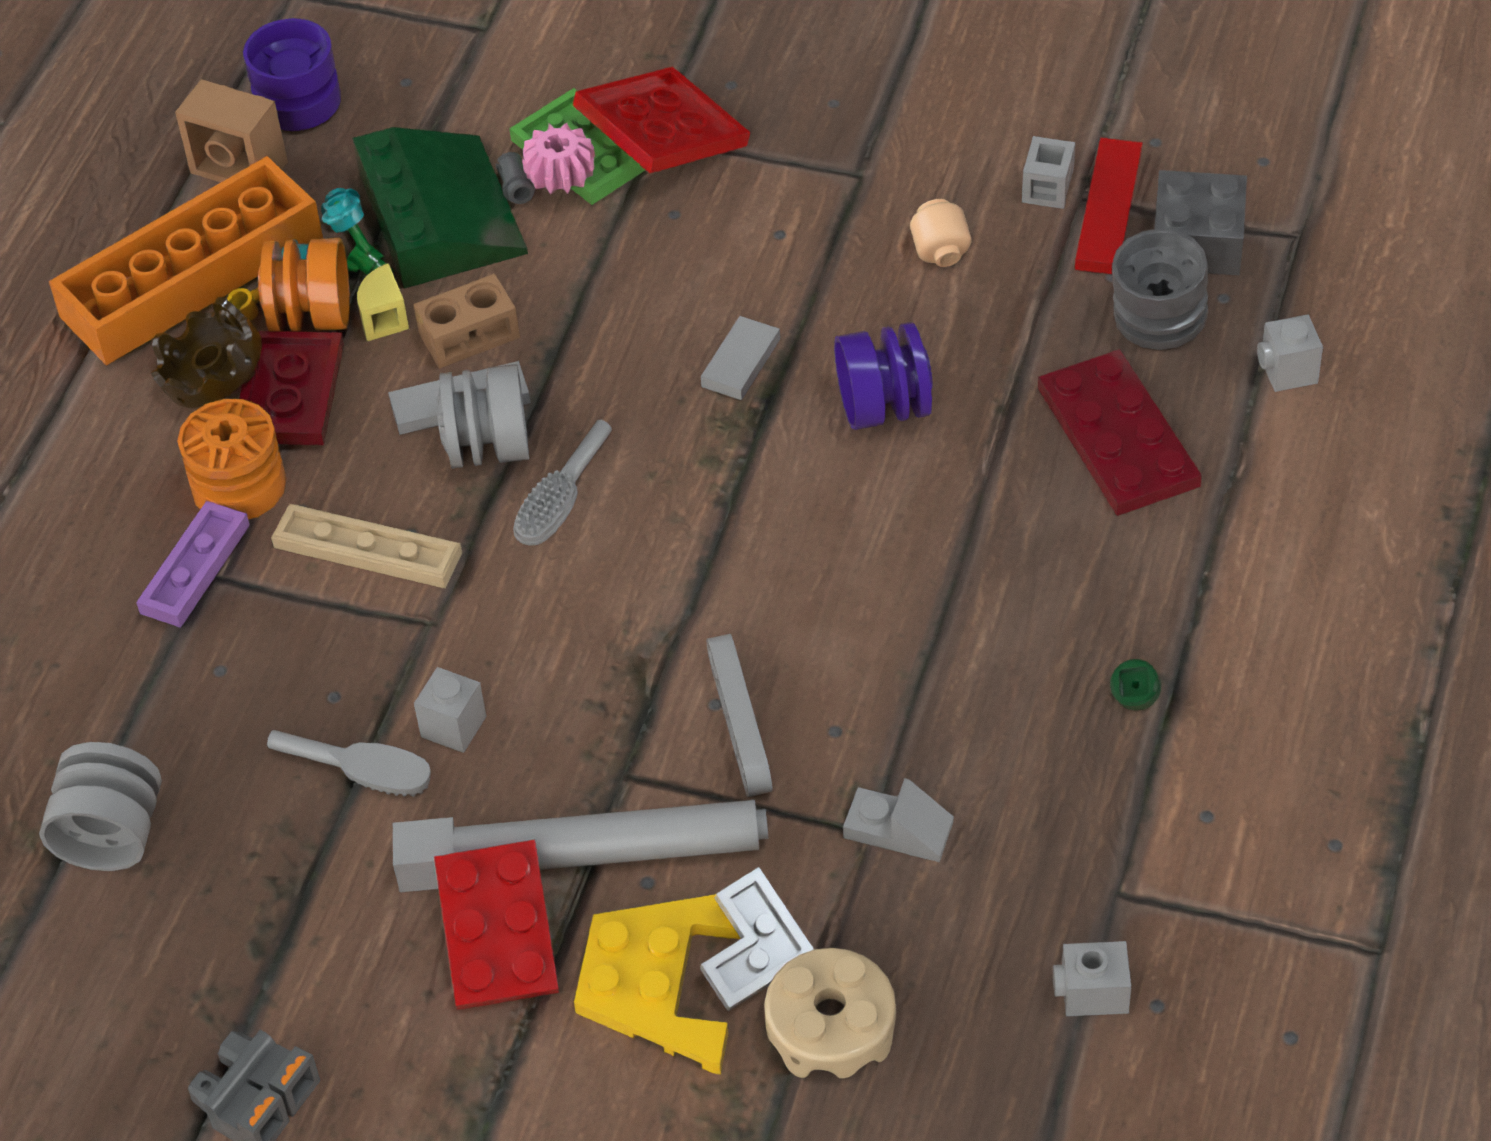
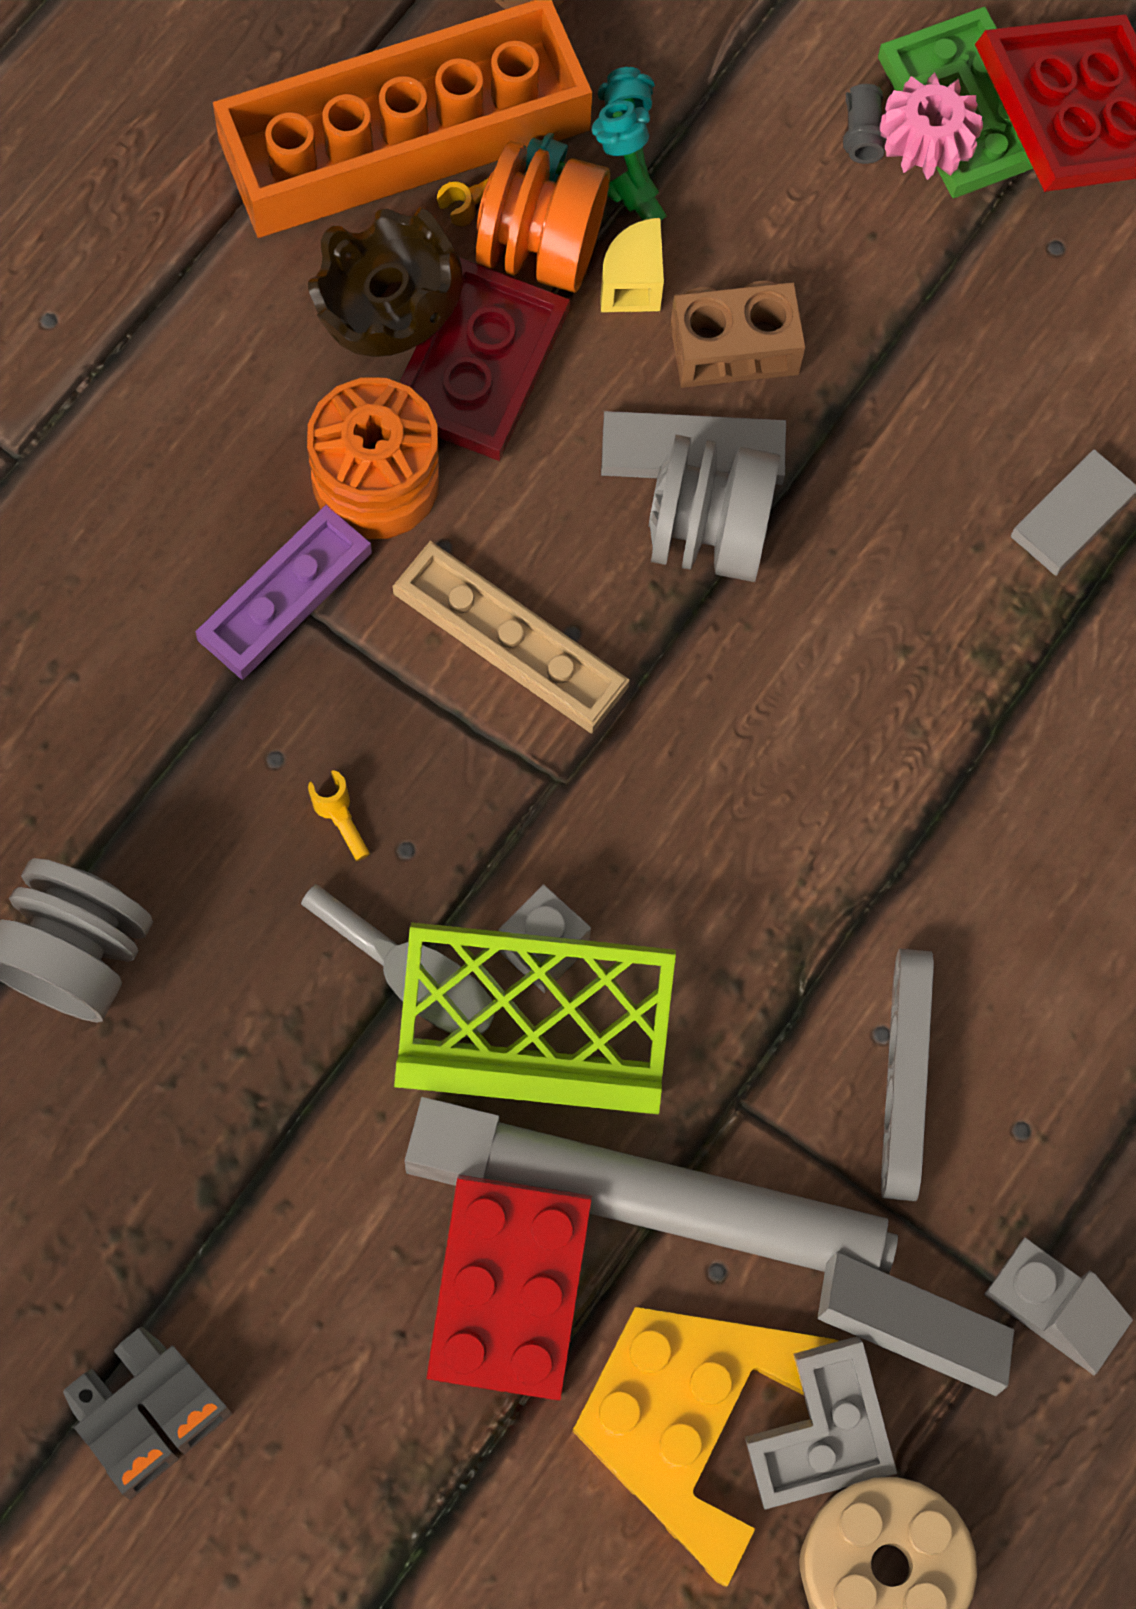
camera: 10 degrees right, 20 degrees up
(272, 682) = (337, 809): none -> yellow hand
(436, 202) = (753, 128): dark green slope -> none
(465, 792) = (524, 1073): none -> lime fence
(555, 495) = (770, 645): light grey piece -> none
(797, 855) = (916, 1324): none -> light grey tile

